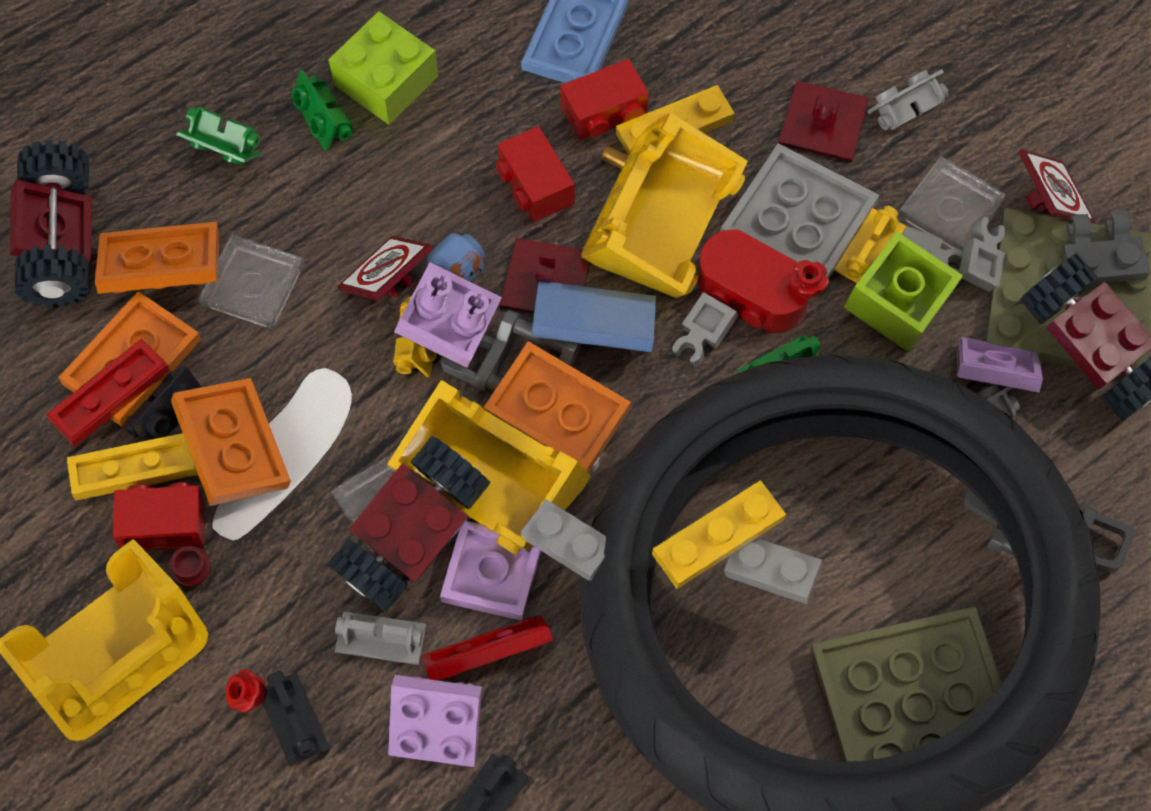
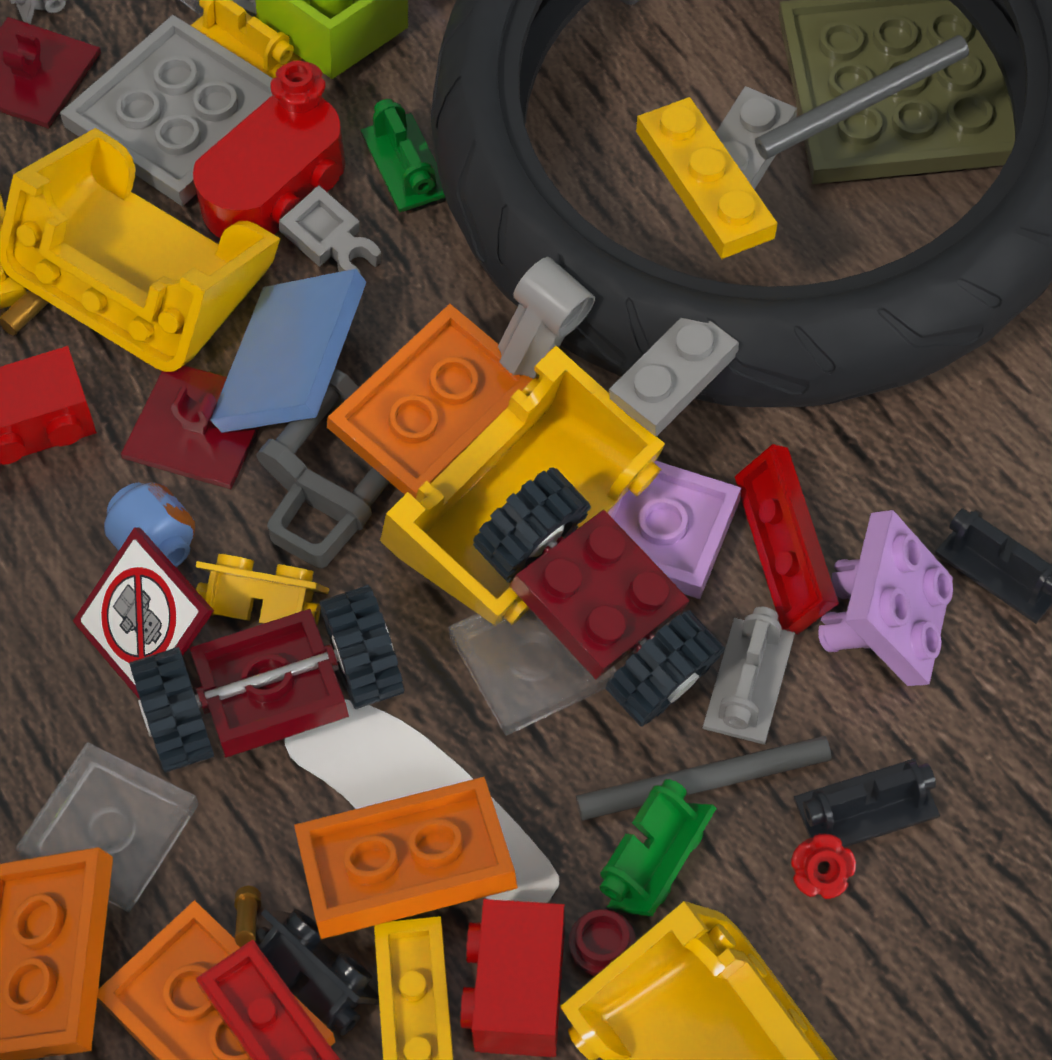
camera: 80 degrees left, 5 degrees down
(206, 365) = (247, 904): none -> pearl gold piece
(264, 595) = (642, 873): none -> green hinge
(308, 618) = (707, 776): none -> dark grey bar
(342, 344) = (268, 680): none -> plate
(448, 314) = (257, 517): lavender plate -> none
(610, 453) = (547, 312): none -> light grey piece
(810, 637) = (861, 97): none -> dark grey piece

